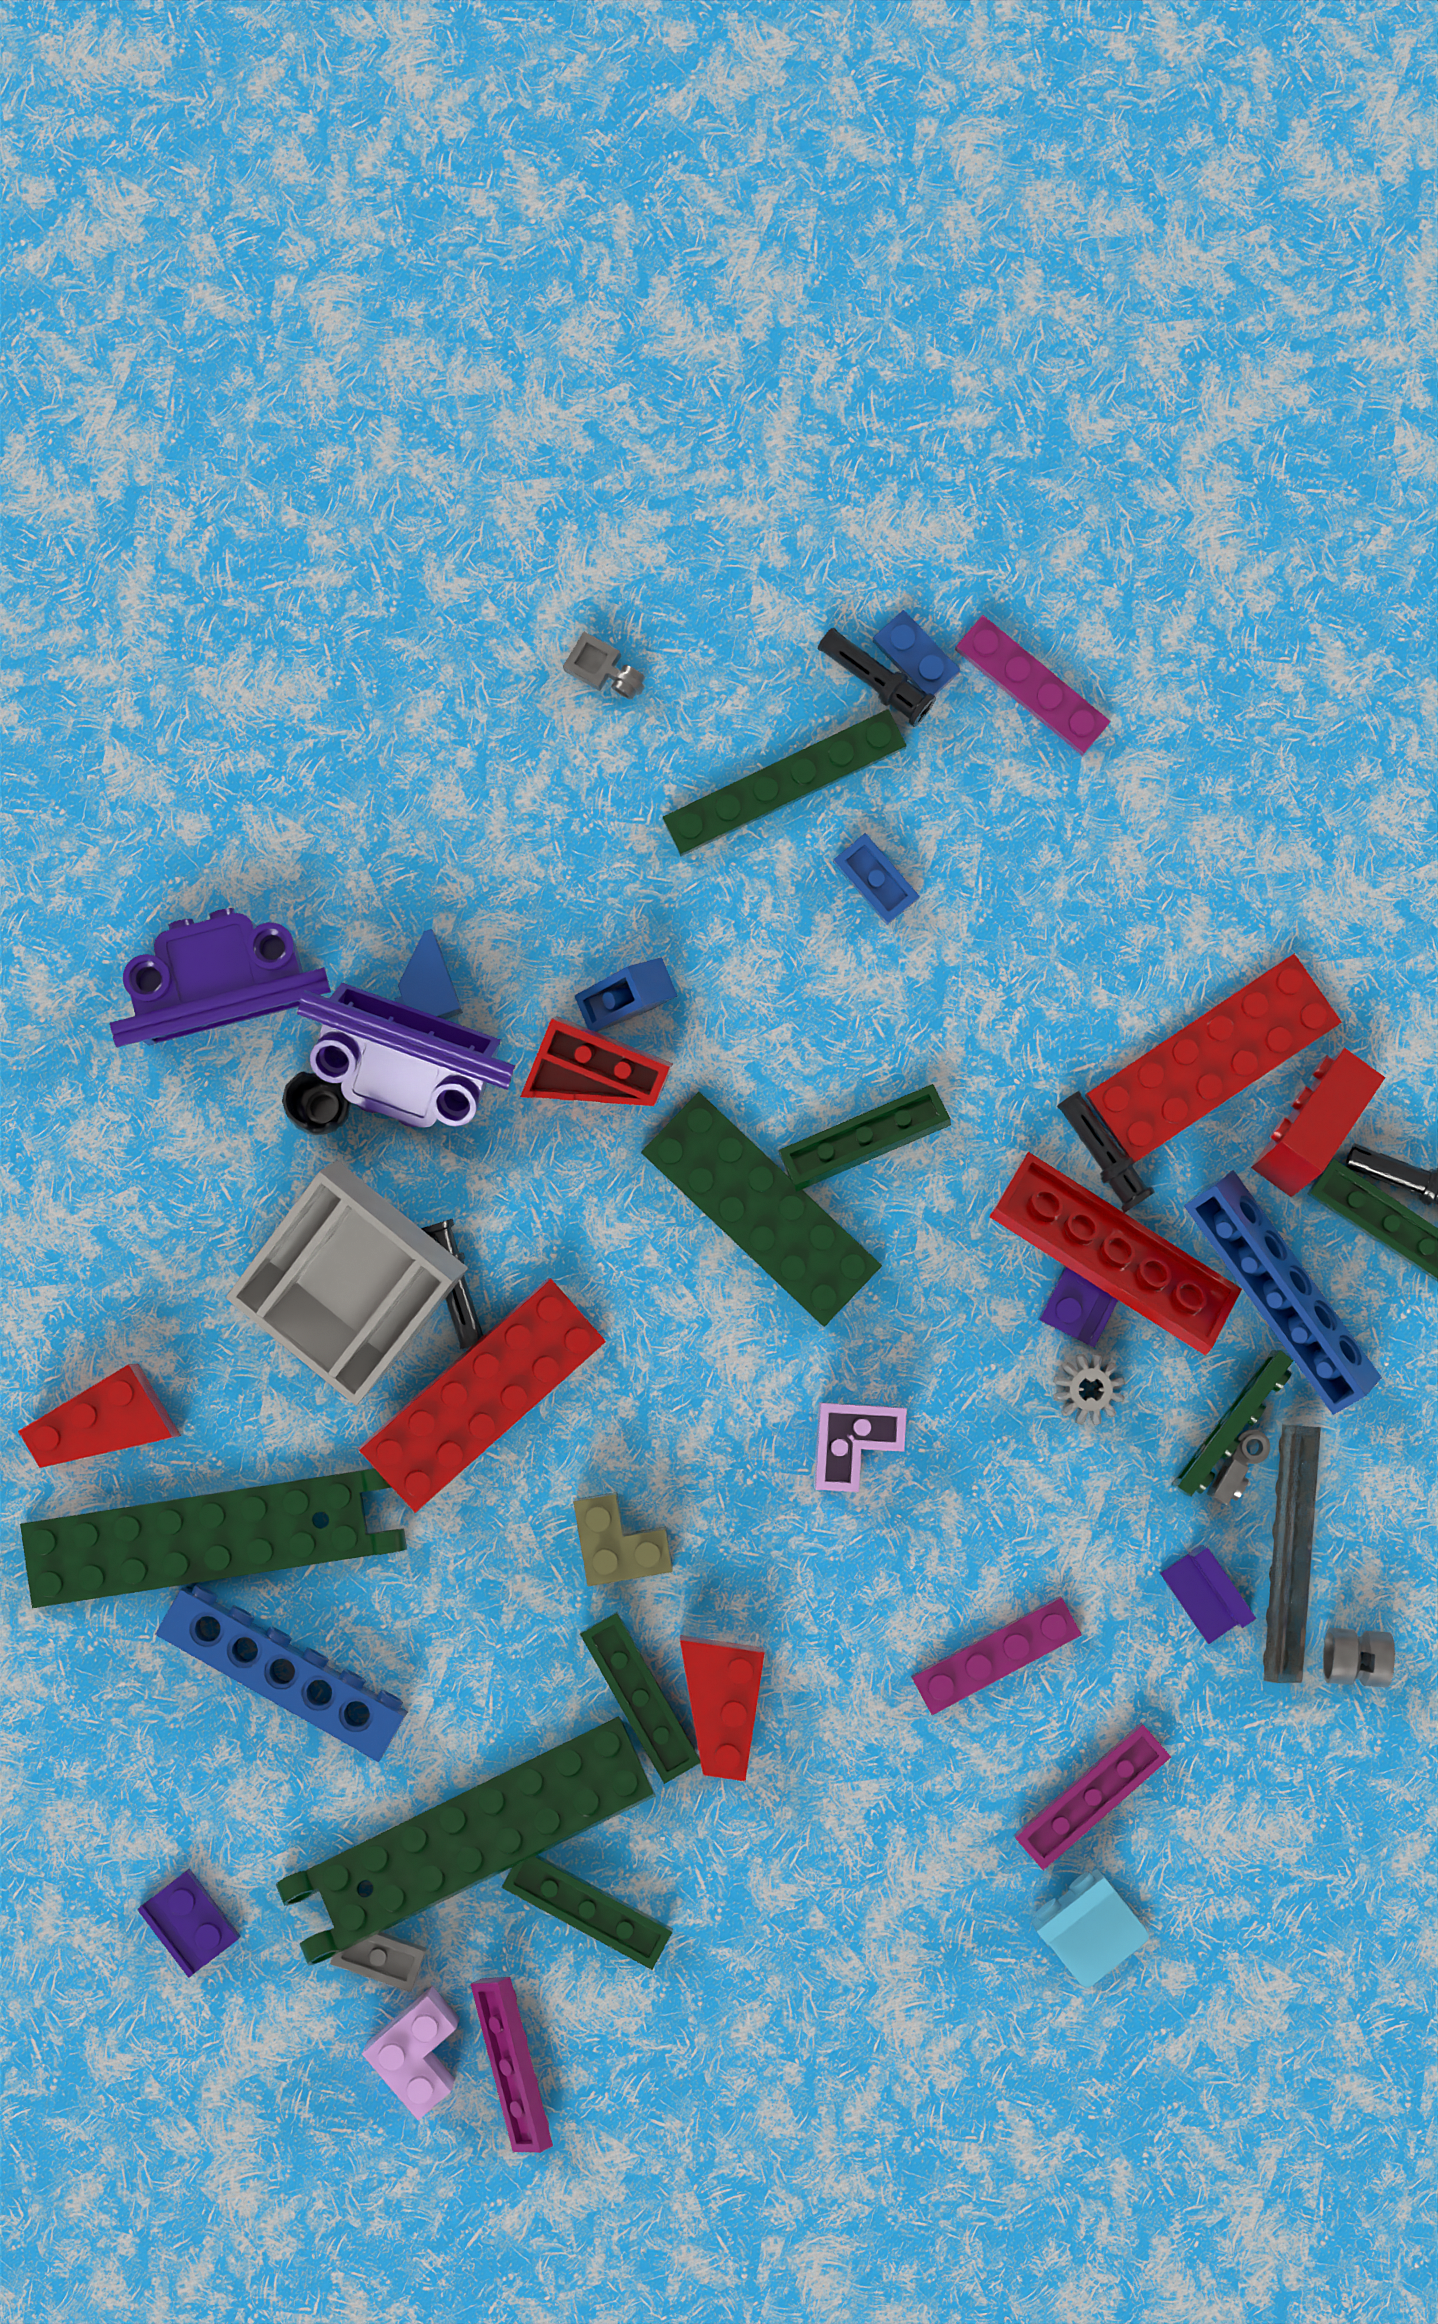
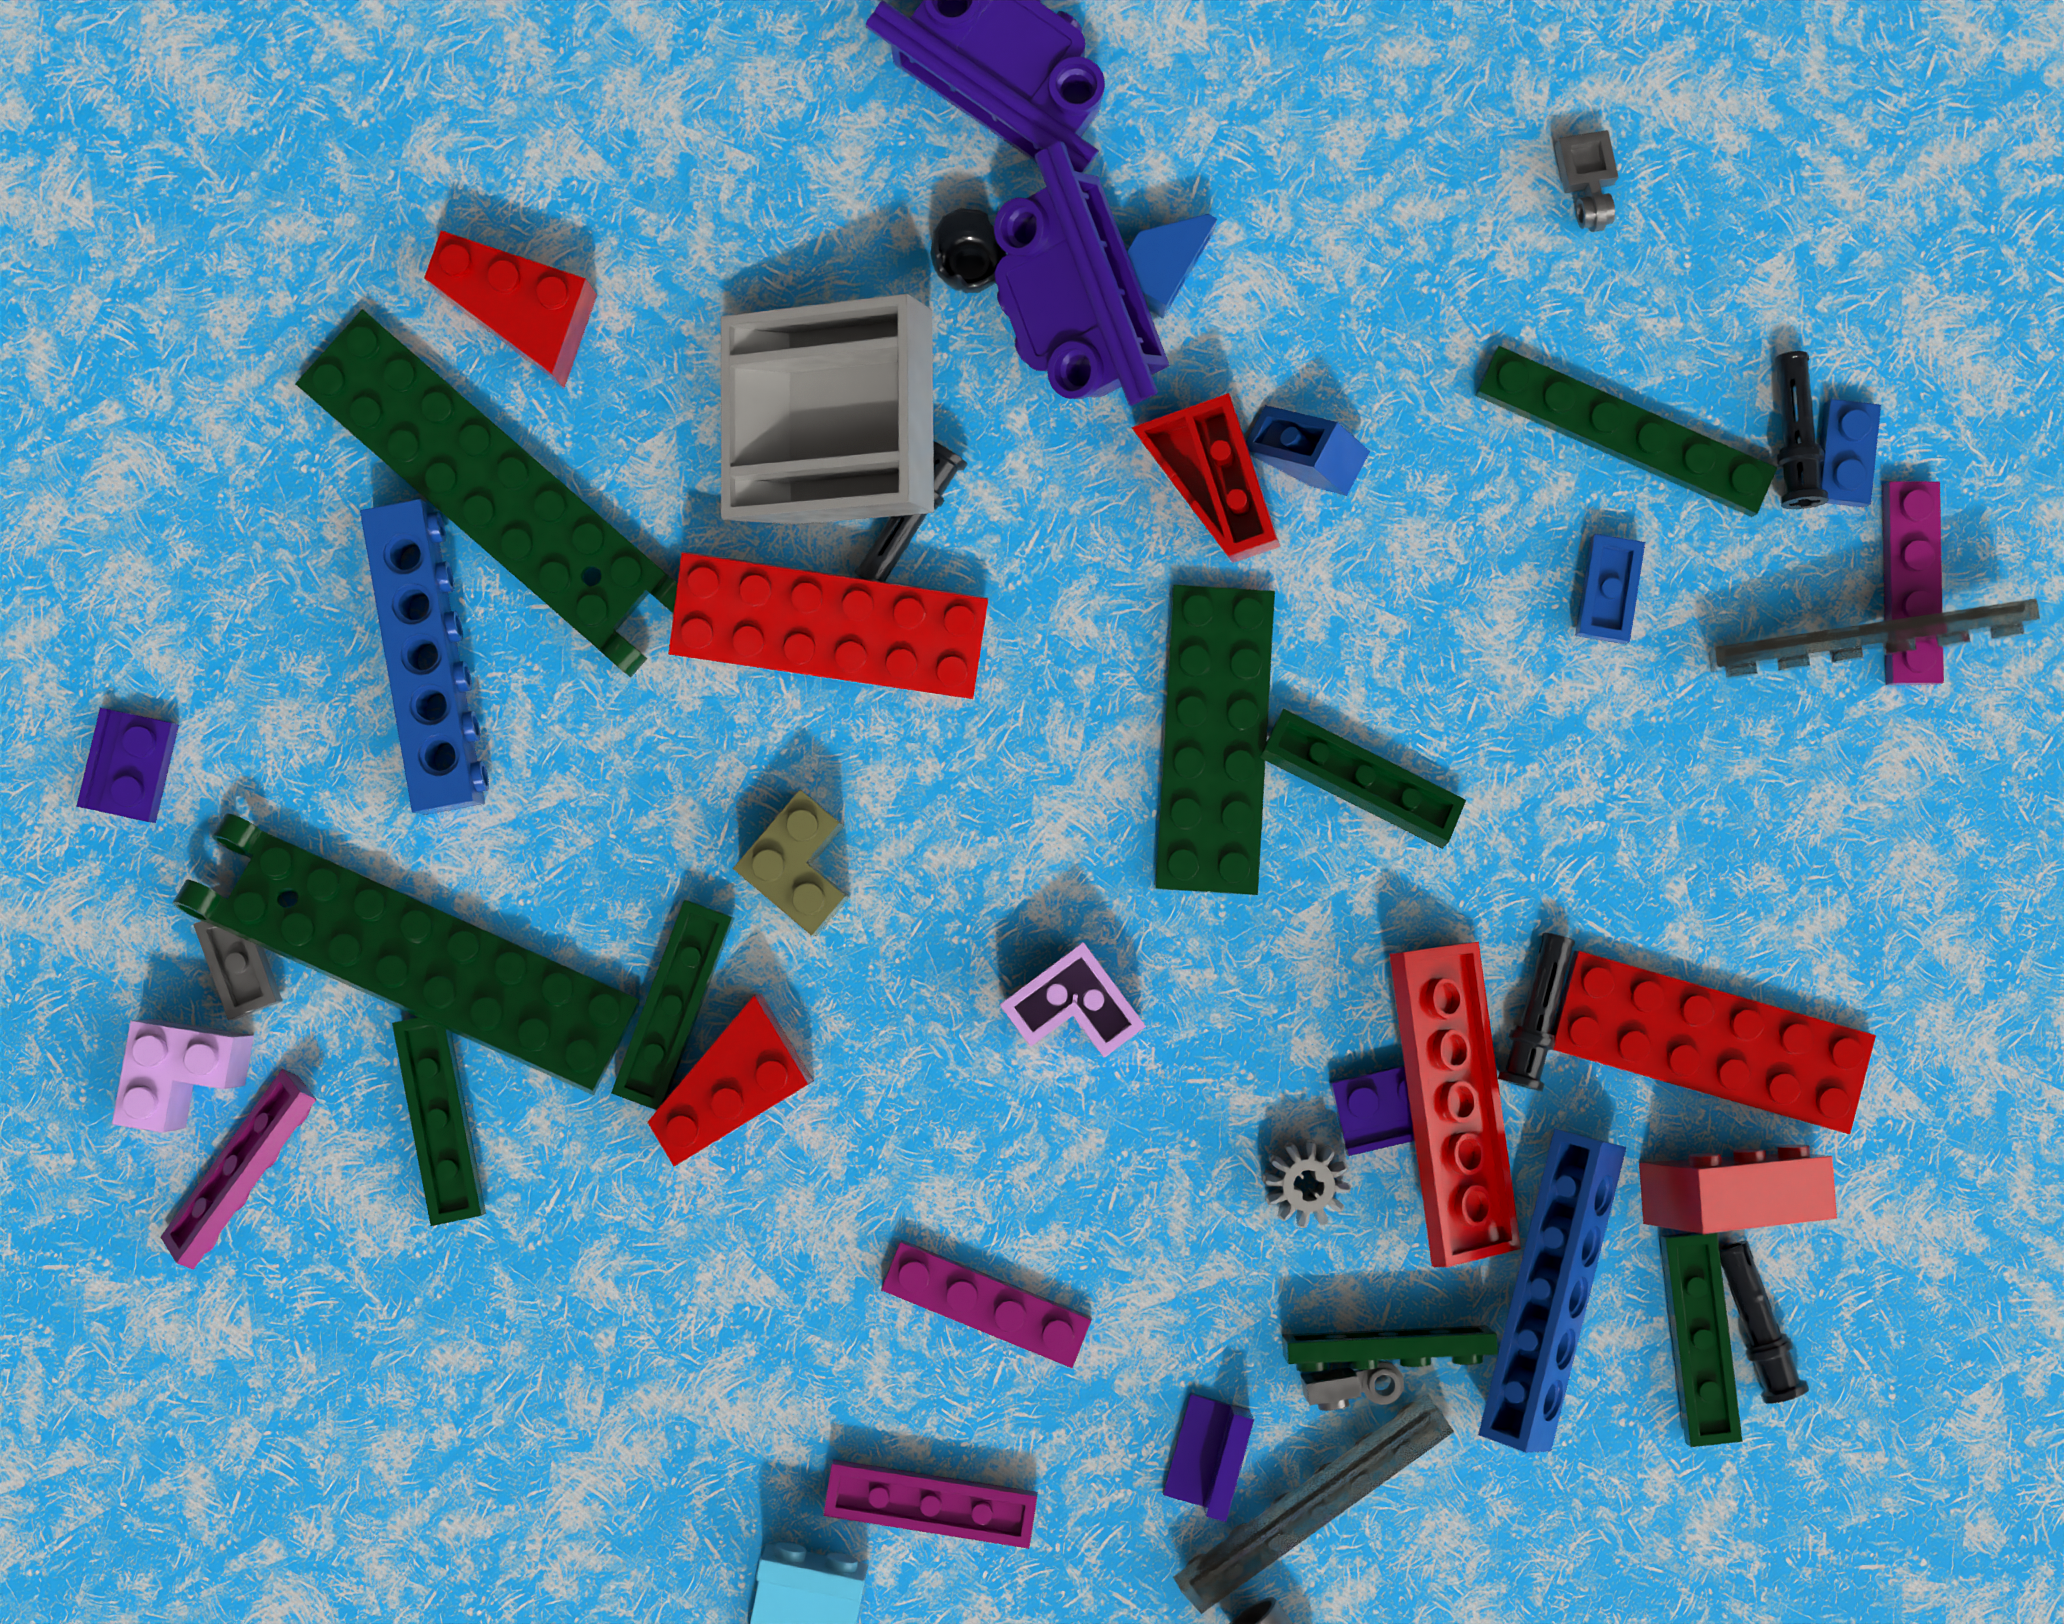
camera: 55 degrees right, 0 degrees up
(1055, 731) = (1894, 636): none -> clear smoke plate

